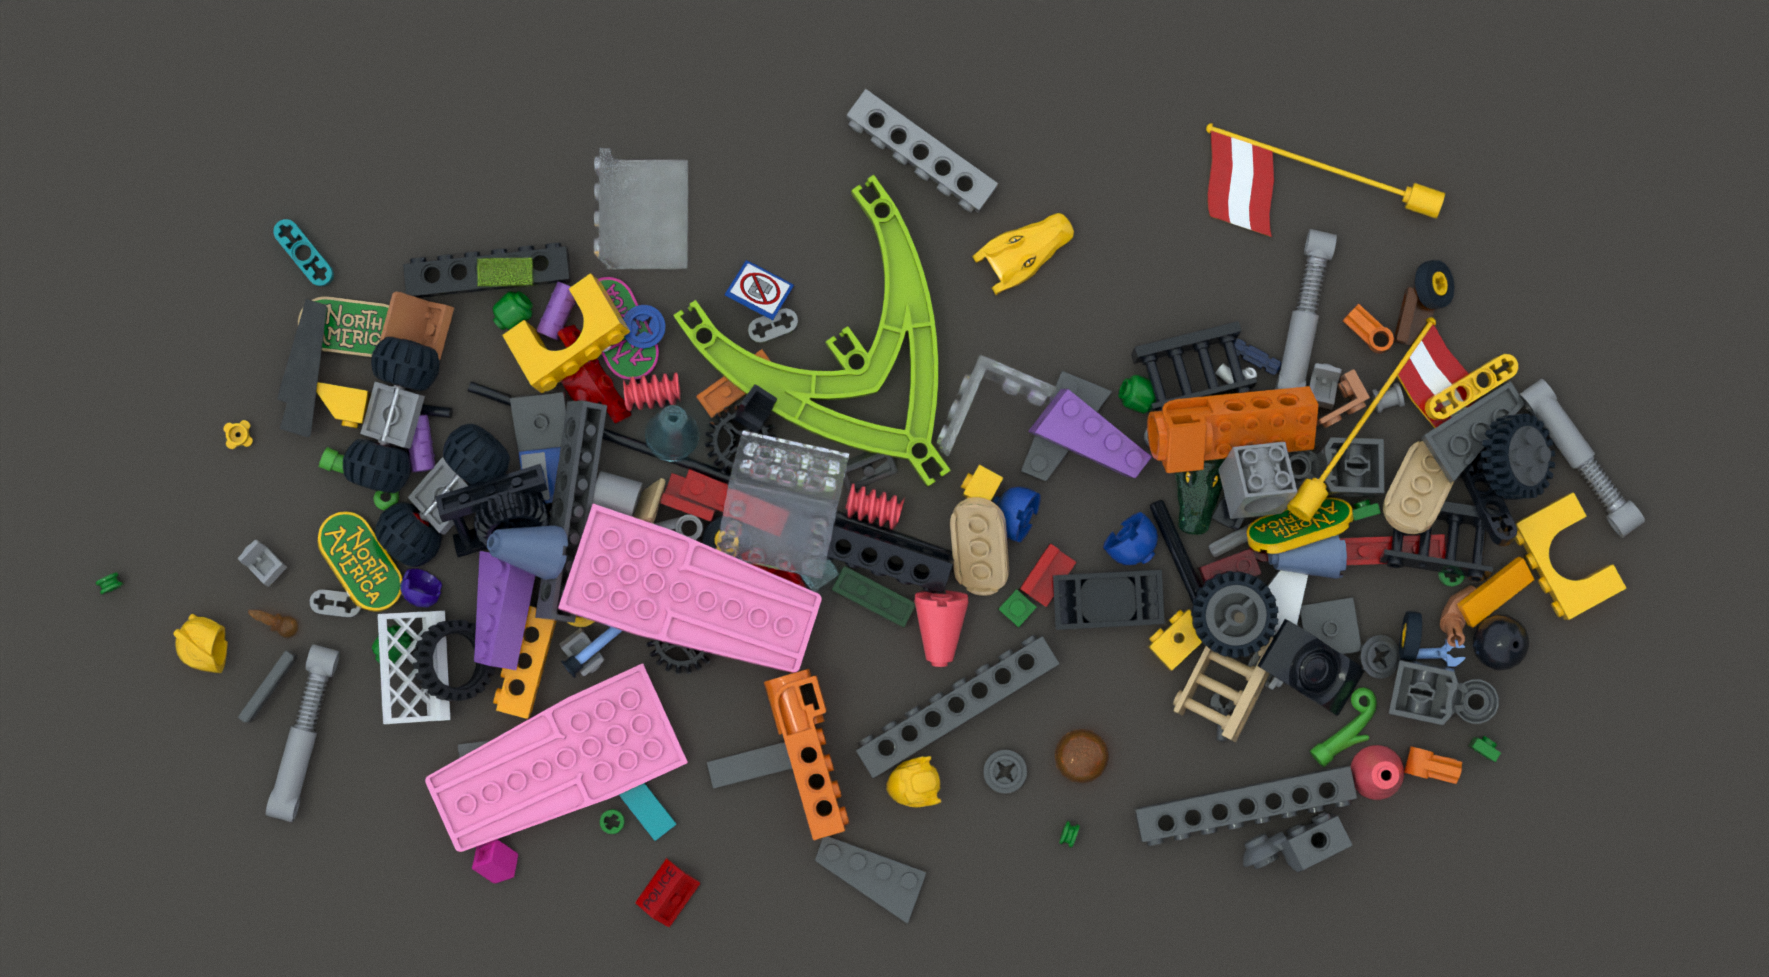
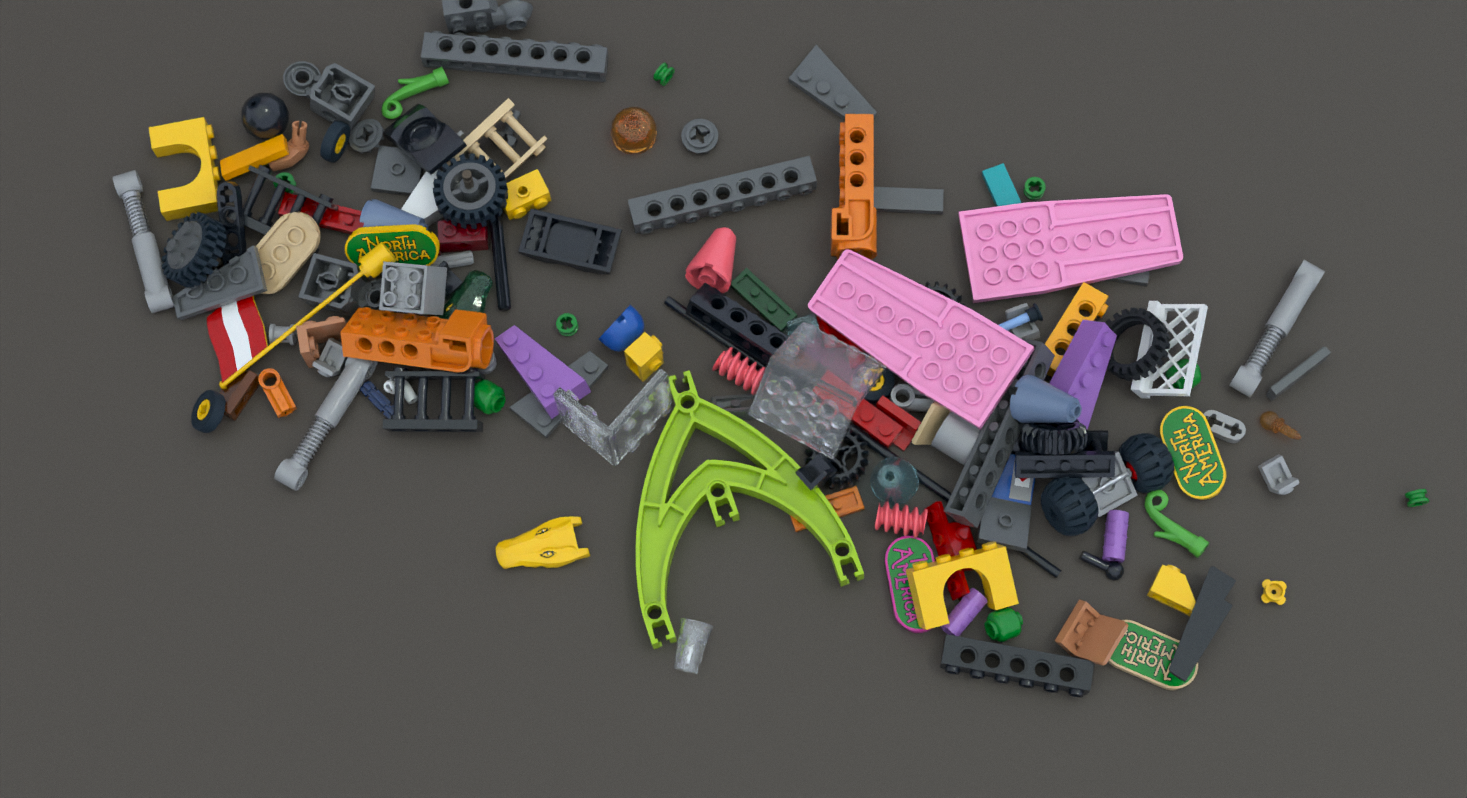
camera: 160 degrees left, 15 degrees down
(202, 644) = (1347, 422): yellow helmet -> none
(296, 233) = (1162, 718): teal beam -> none
(391, 415) = (1153, 529): black plate -> none
(420, 588) = (1146, 415): dark purple hair -> none
(495, 861) = (1140, 182): dark pink panel -> none
(505, 272) = (1001, 654): clear neon green tile -> none
(641, 213) = (864, 675): clear bracket -> none
(657, 326) = (894, 565): blue gear -> none
(667, 893) = (1005, 121): red panel -> none
(759, 290) = (782, 577): piece -> none
(775, 332) = (779, 553): light grey beam -> none
(833, 190) = (691, 644): none -> clear plant
(870, 105) = (571, 601): light grey brick -> none
(914, 783) = (776, 143): yellow helmet -> none
(979, 546) = (662, 308): tan tile -> none
(1017, 608) = (647, 259): green plate -> none
(1040, 580) = (621, 275): red panel -> none
(1088, 500) = (565, 317): none -> green bush
(1134, 541) = (533, 280): blue cylinder -> none
(1244, 182) = (333, 552): flag -> none
(1365, 509) = (334, 249): green plate -> none
(1367, 771) = (400, 49): coral cone -> none
(1426, 764) = (360, 46): orange piece -> none
(1438, 653) = (315, 127): light blue bar -> none
(1470, 384) = (210, 317): yellow beam -> none
(1485, 747) = (308, 44): green plate -> none

